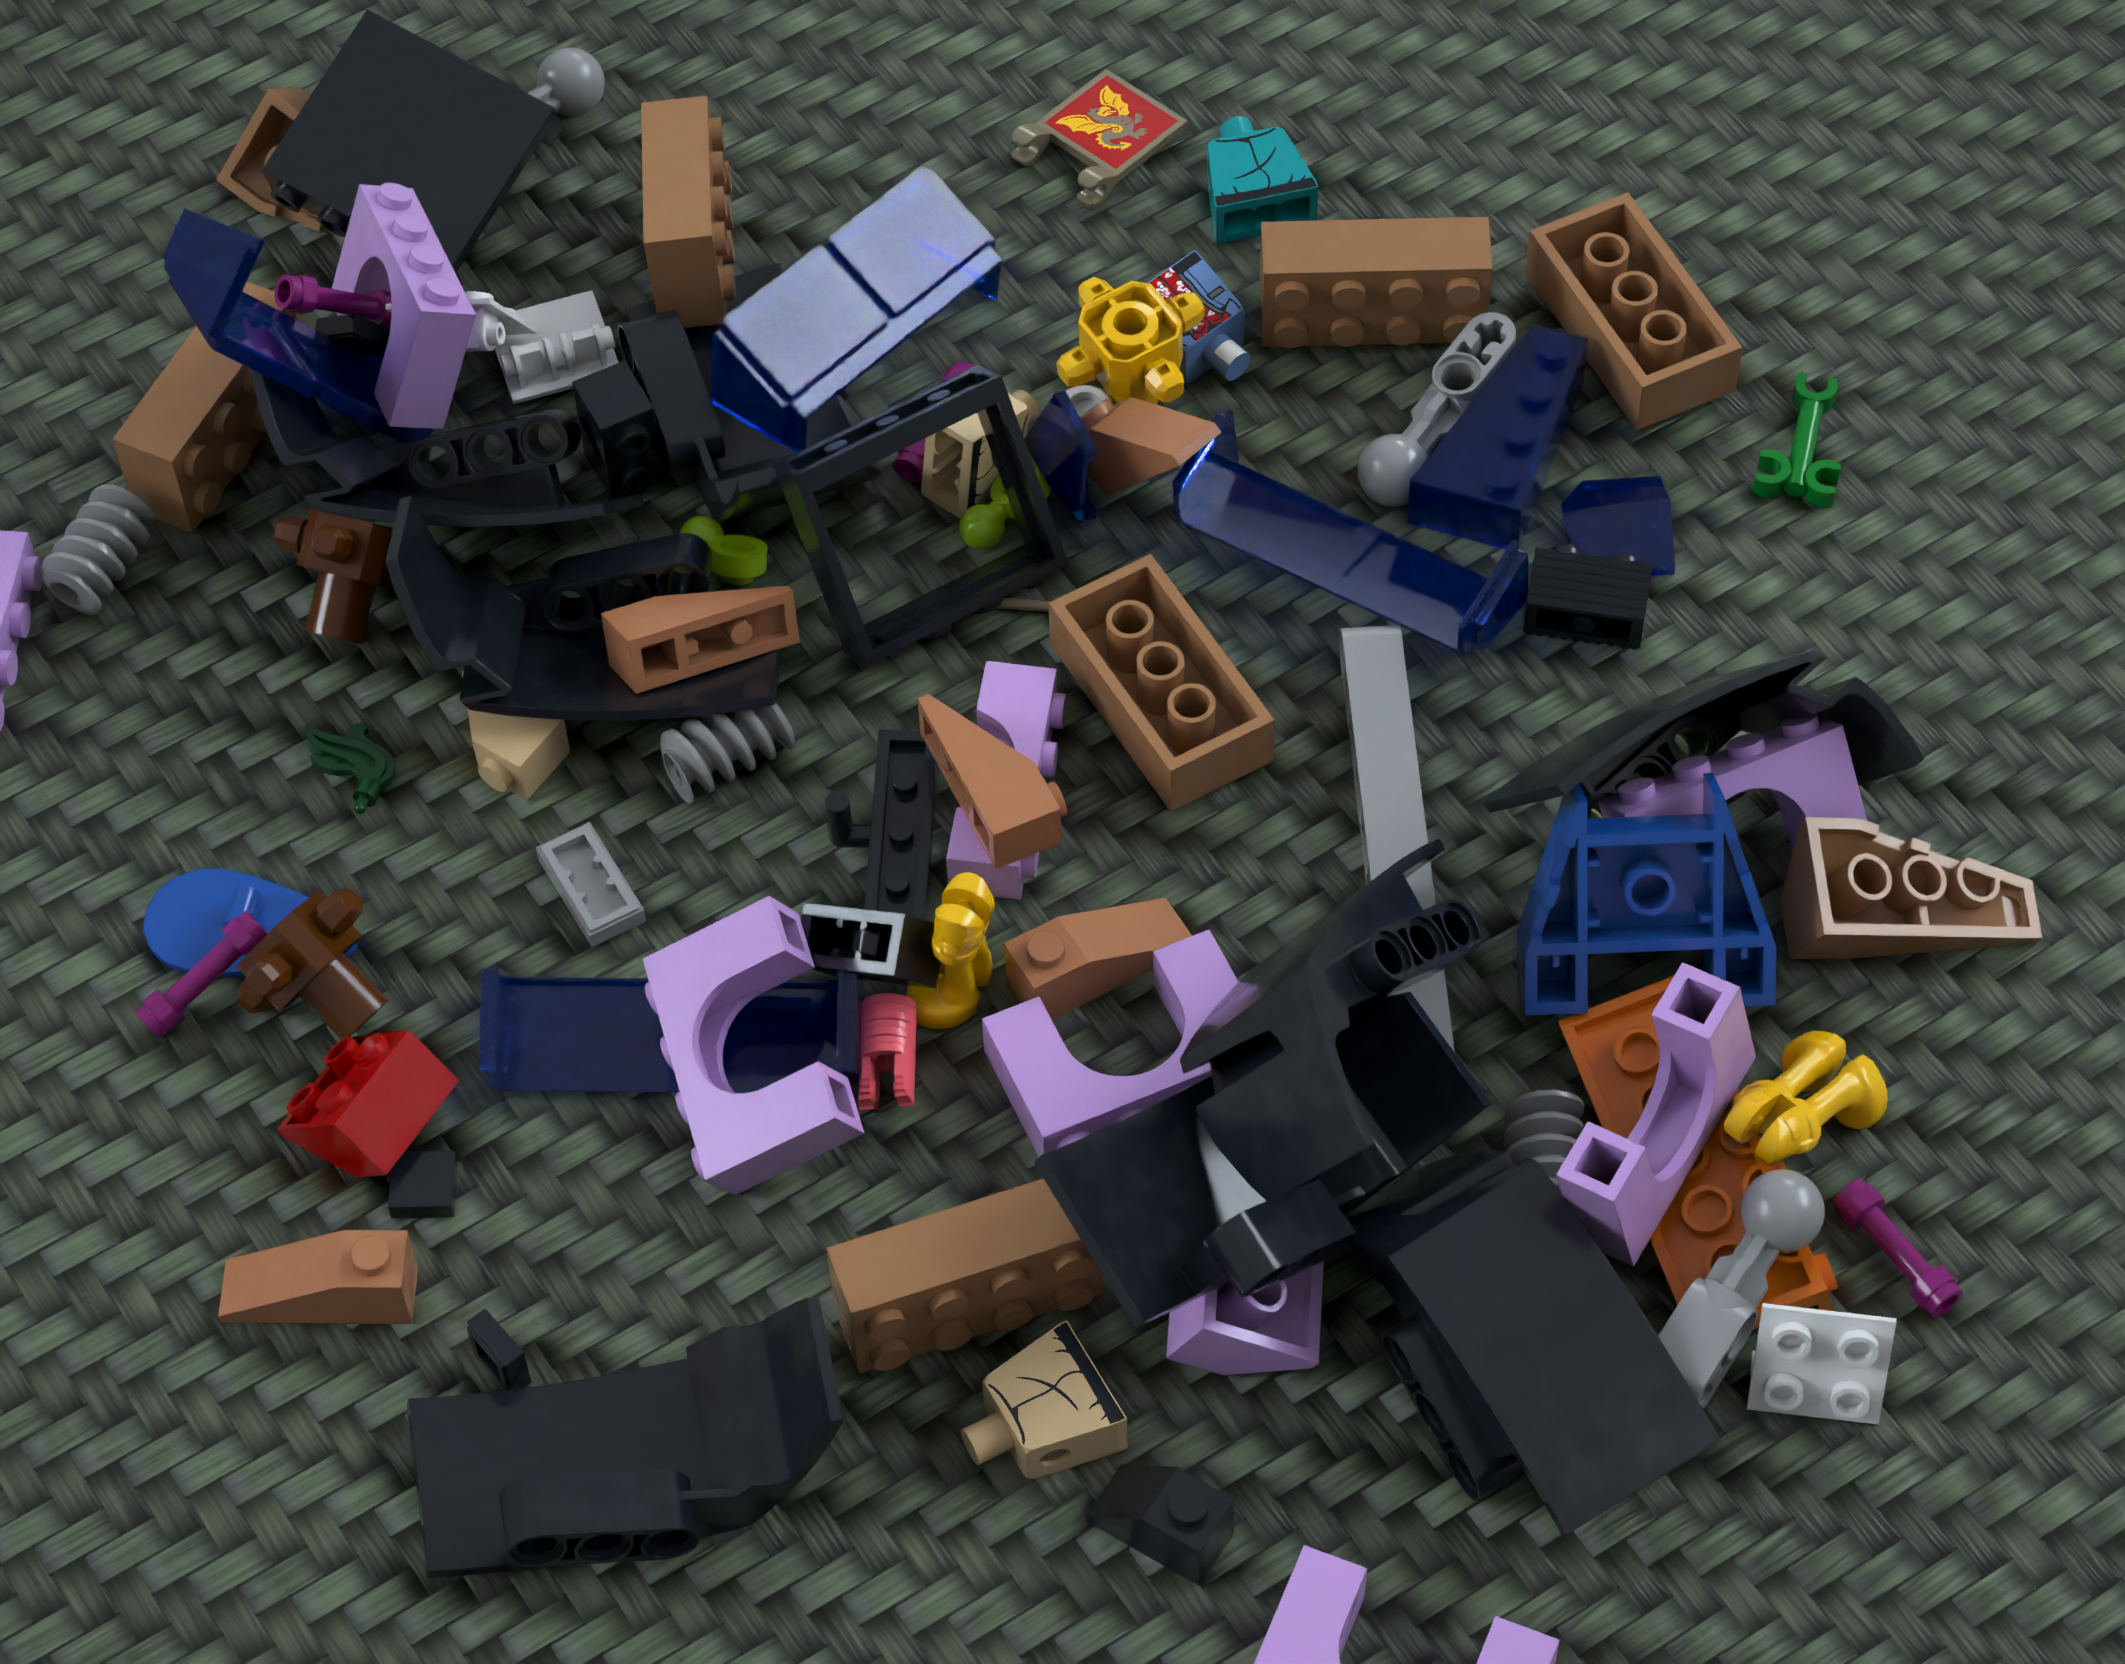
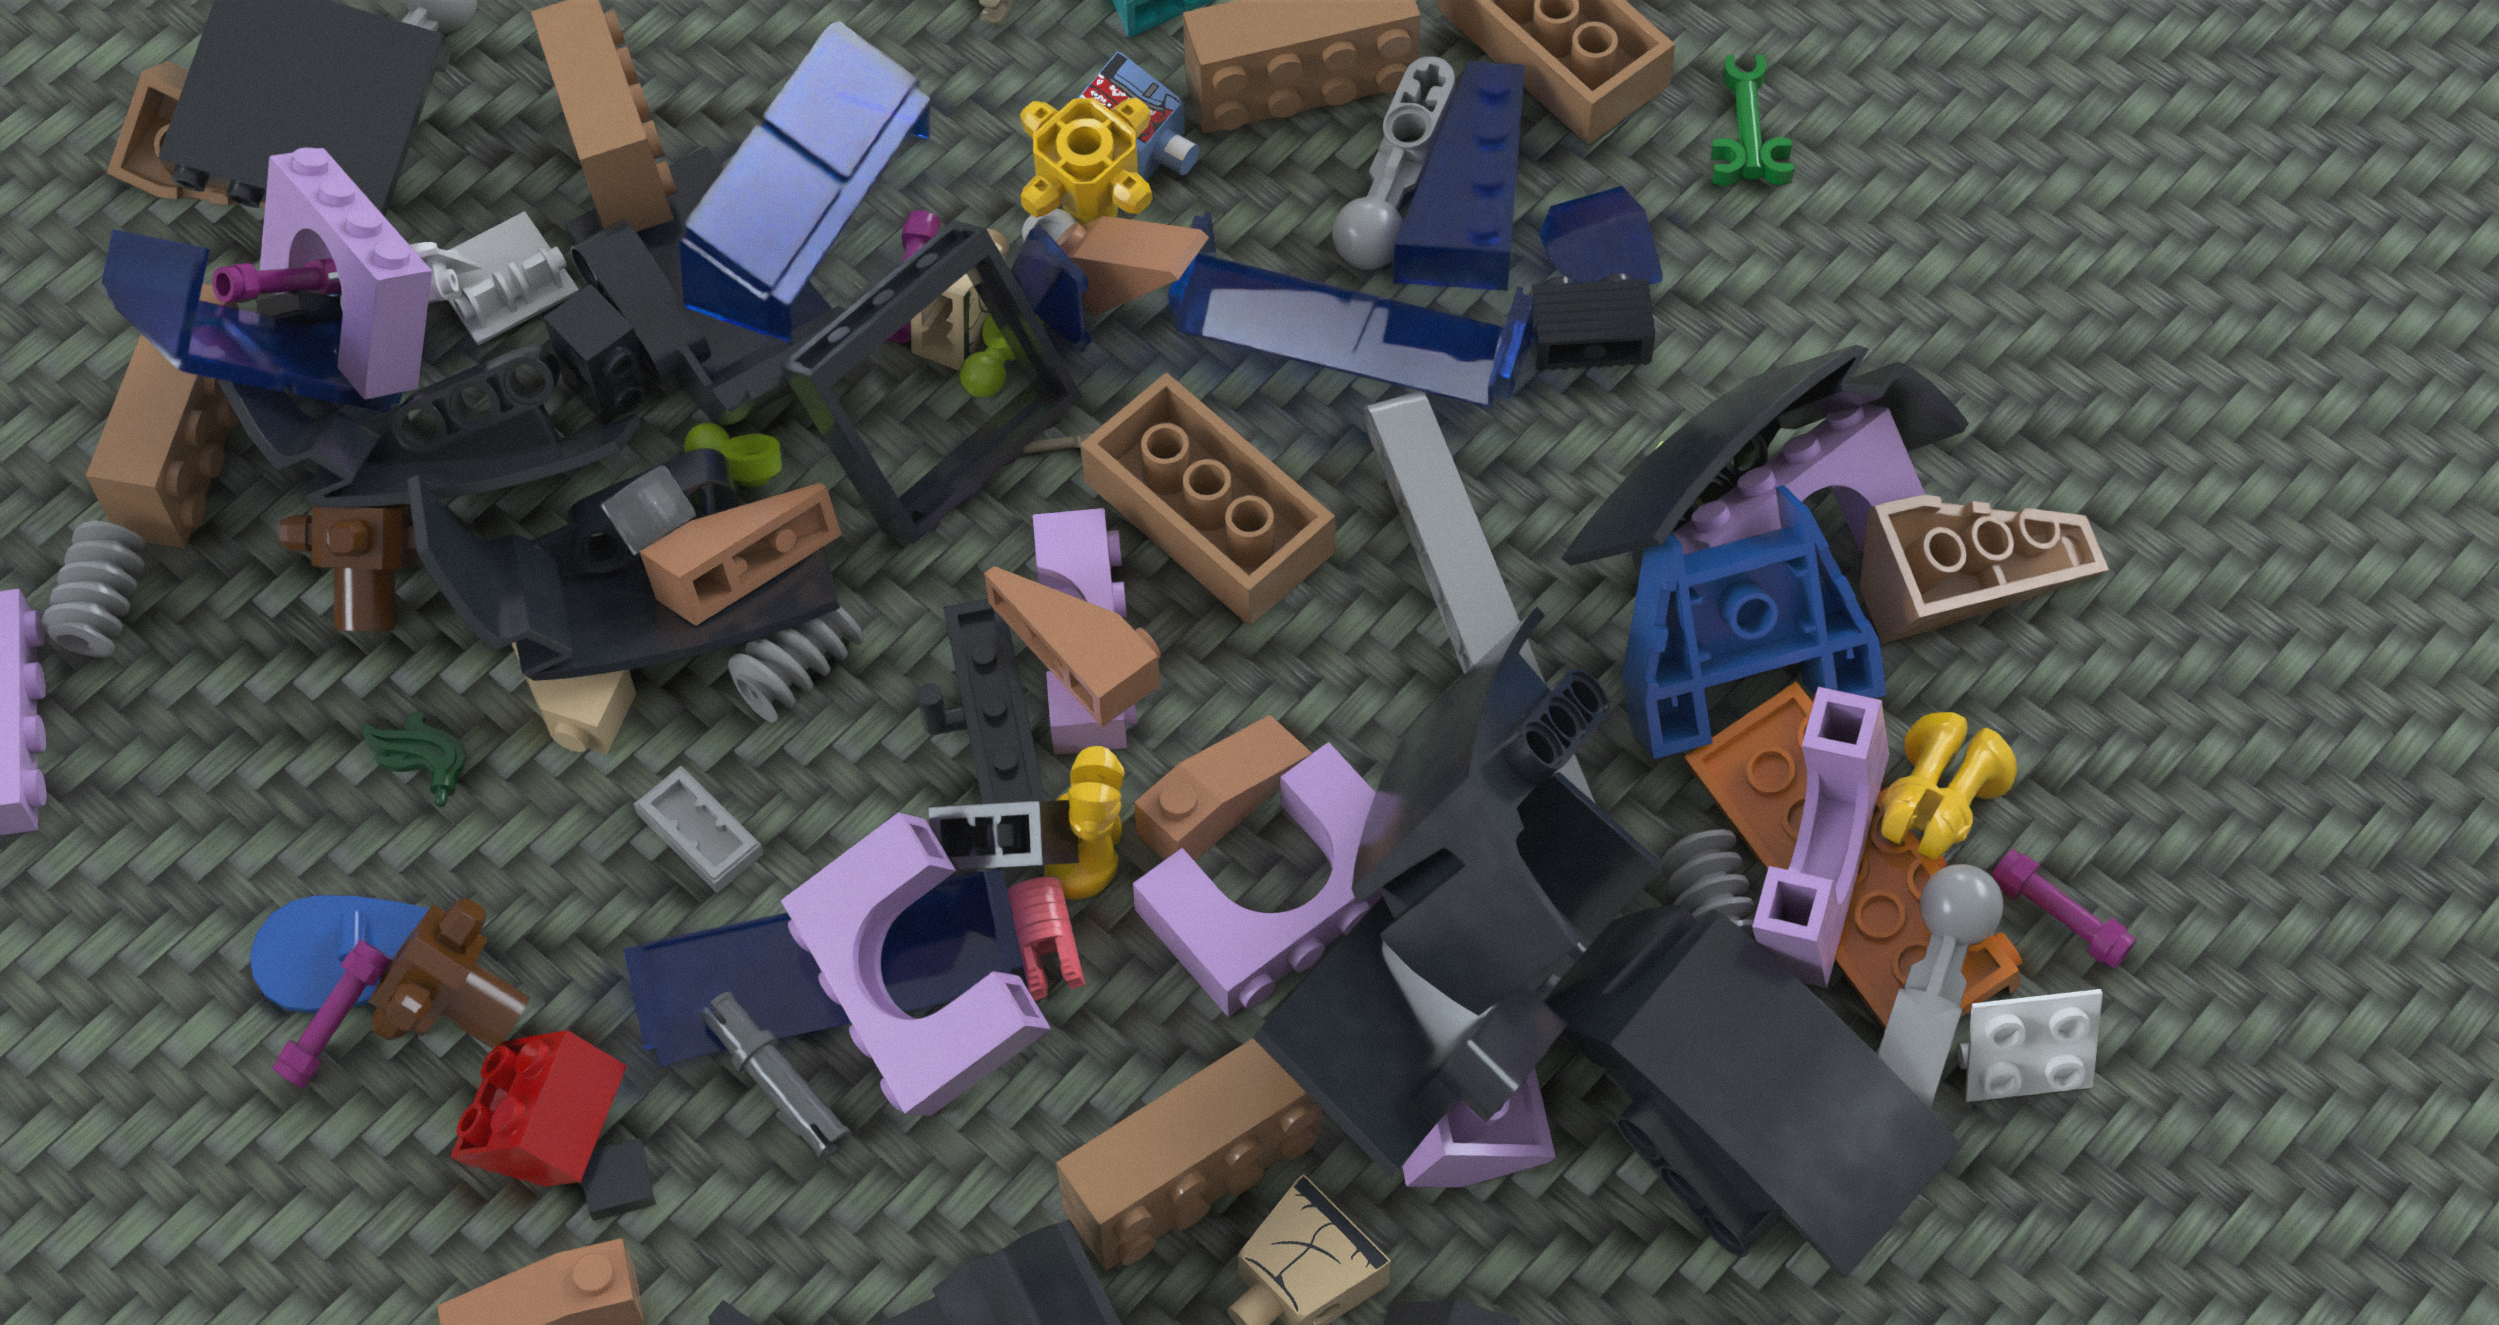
camera: 15 degrees left, 5 degrees up
(586, 1101) = (758, 1055): none -> dark grey pin
(620, 575) = (648, 509): none -> clear slope

